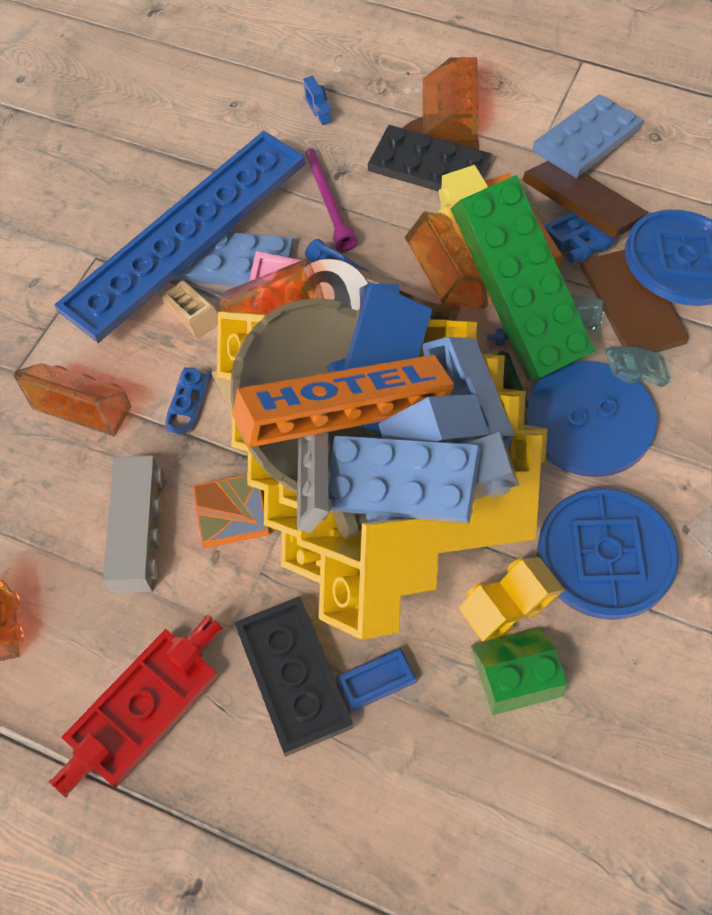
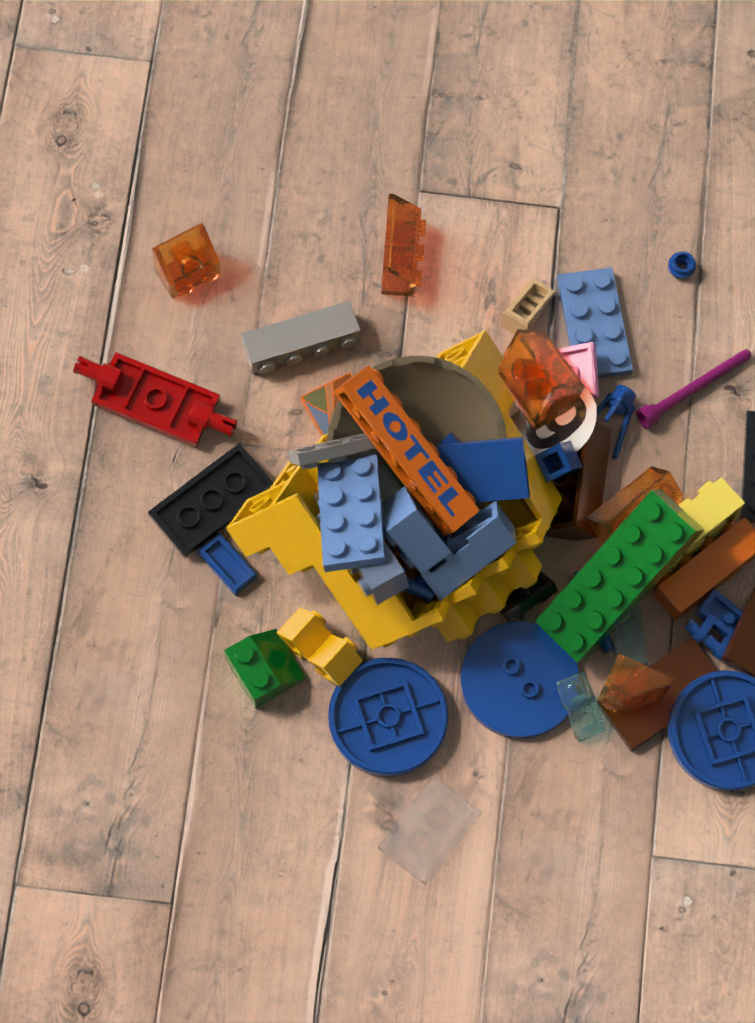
camera: 65 degrees right, 10 degrees up
(179, 236) = (599, 273): blue plate -> none
(183, 404) = (426, 335): blue piece -> none
(199, 172) = (685, 259): none -> blue plate
(633, 308) = (633, 686): none -> clear orange slope

